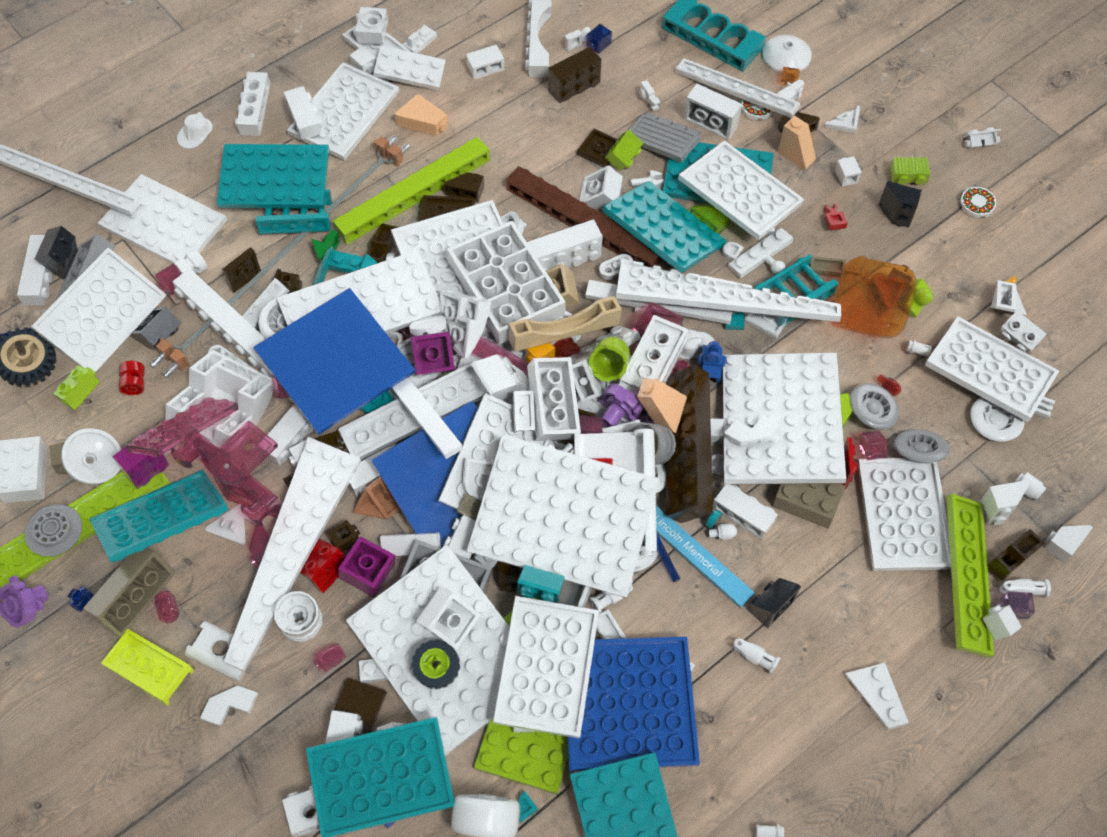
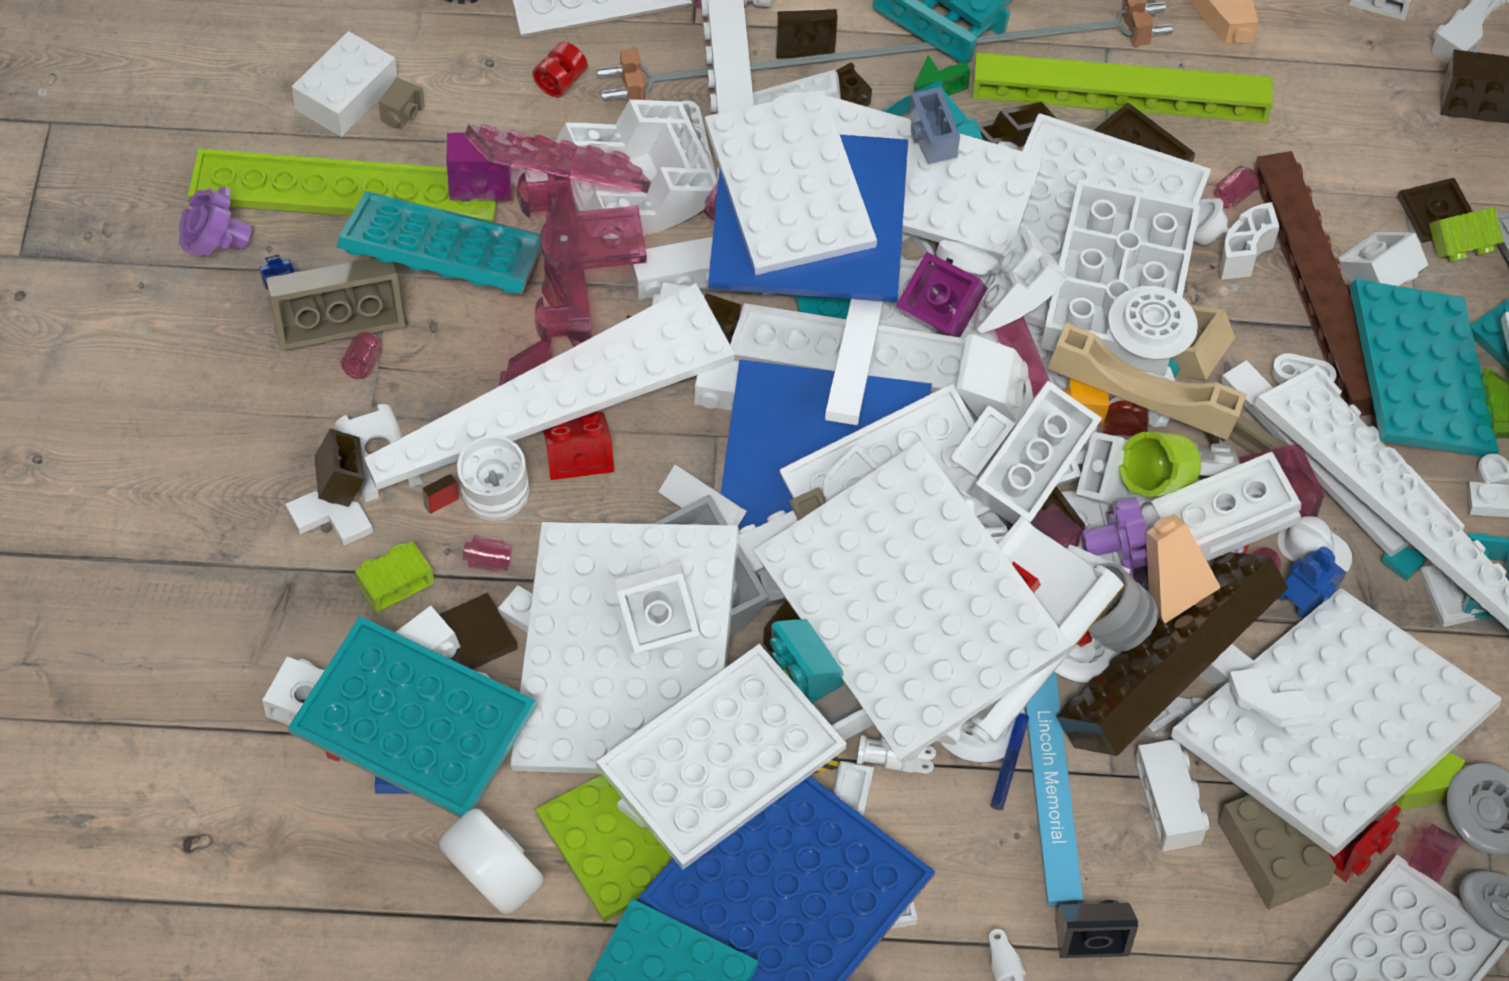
camera: 40 degrees right, 5 degrees down
(50, 525) = (316, 167): light grey wheel -> none
(76, 387) = (489, 34): lime brick -> none
(91, 445) = (429, 105): white dish -> none
(147, 666) = (280, 400): neon yellow hinge -> none
(155, 327) = (644, 31): slope -> none
(213, 676) = (339, 468): none -> dark brown brick
(230, 526) = (513, 324): white piece -> none
(276, 646) = (440, 493): none -> tile
(293, 709) = (393, 576): none -> lime brick
(312, 351) = (790, 182): none -> white plate
(343, 530) = (633, 433): dark brown brick -> none
(357, 271) = (933, 125): none -> sand blue brick
(366, 566) = (626, 485): magenta brick -> none
(376, 501) = (708, 422): nougat slope -> none
(445, 671) = (594, 667): black wheel -> none
(465, 186) = (1198, 131): dark brown slope -> none
(507, 200) = (1236, 186): none -> clear pink brick
(527, 807) = (551, 903): teal tile -> none
(536, 219) = (1246, 239): none -> white brick
(545, 287) = (1154, 313): none -> white wheel
(569, 246) = (1253, 296): white brick -> none
(631, 314) = (1253, 437): none -> dark tan tile
(652, 176) = (1480, 296): white bar -> none
(713, 519) = (1118, 772): teal tile -> none
(724, 531) = (1117, 798): white cylinder -> none

